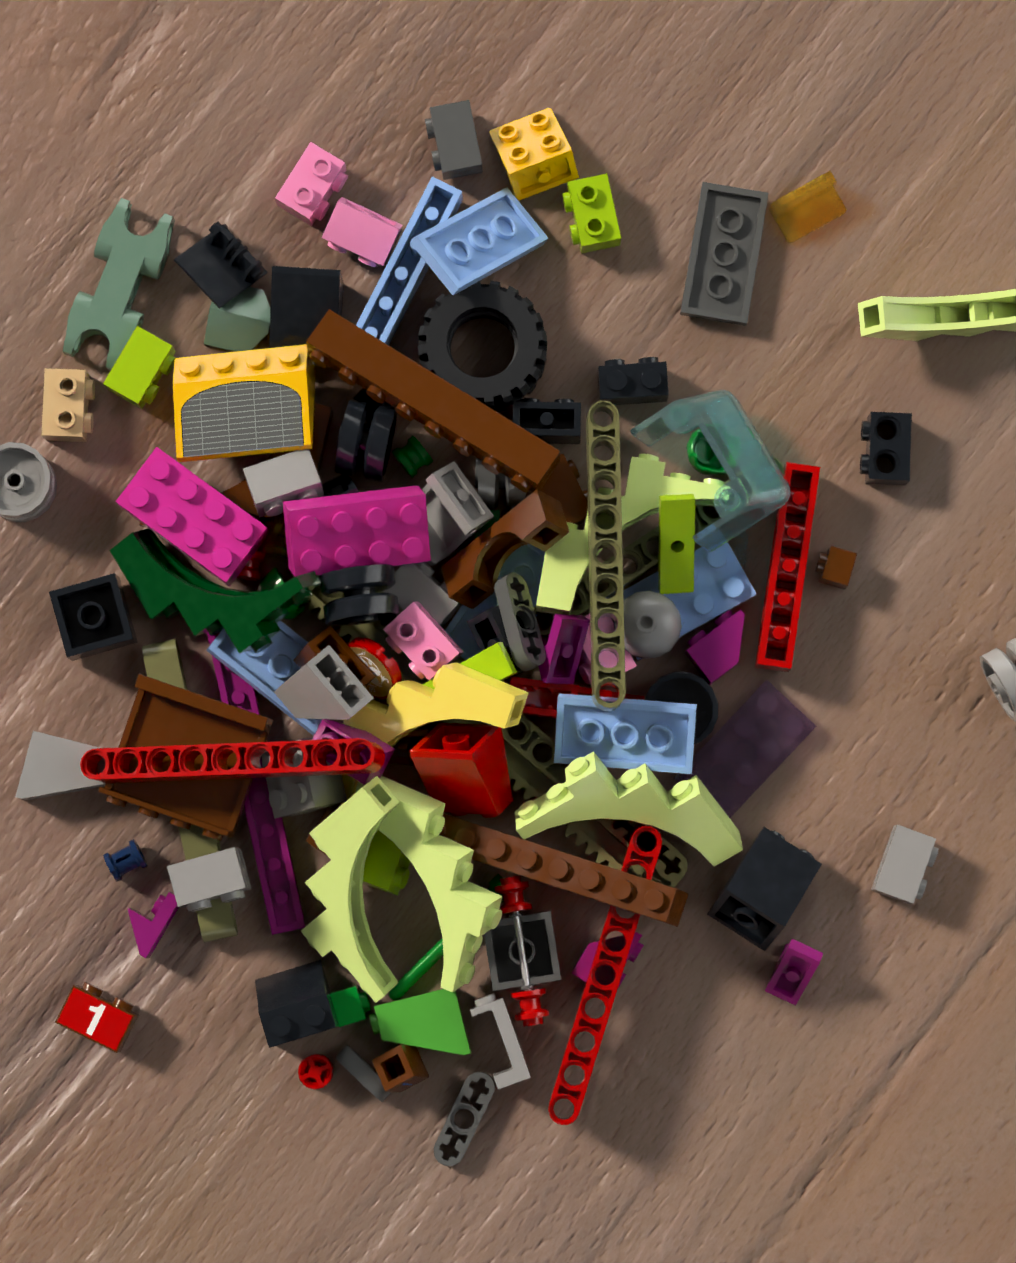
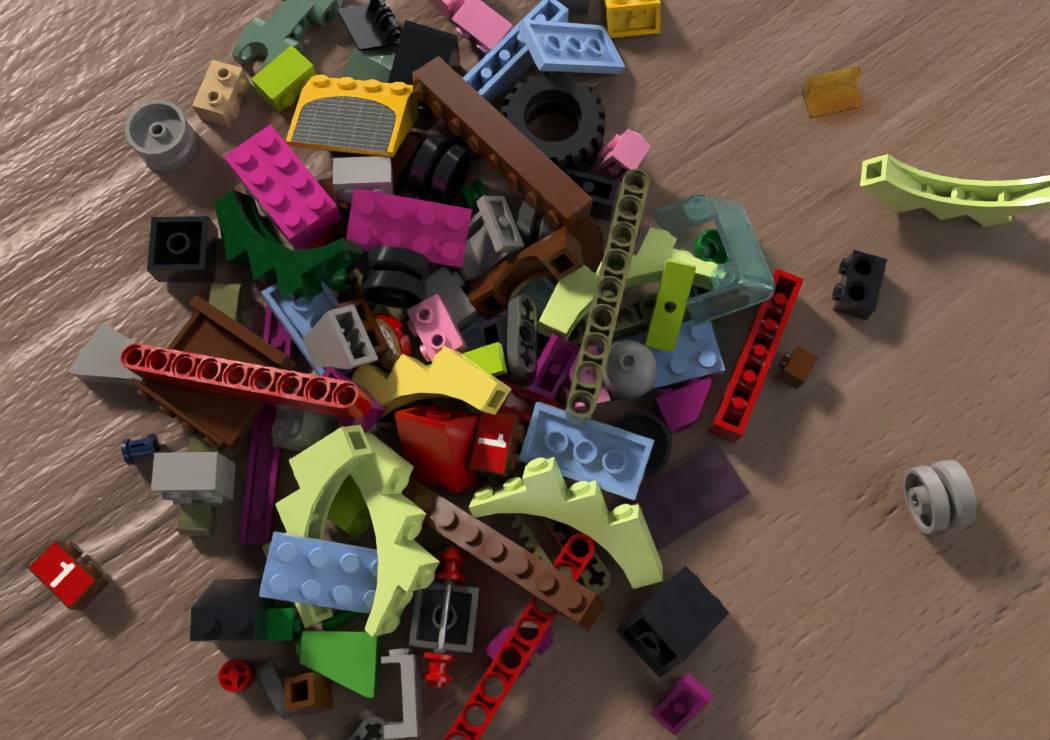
camera: 15 degrees right, 10 degrees down
(149, 931) = (139, 513): magenta slope -> none
(379, 941) = (320, 573): none -> light blue plate
(528, 754) = (497, 445): none -> brick
(575, 368) = (621, 155): none -> bright pink brick
(593, 213) = (665, 57): lime brick -> none
(633, 382) = (667, 182): black brick -> none
(724, 253) = (759, 110): dark grey plate -> none
(905, 865) = (803, 634): light grey brick -> none

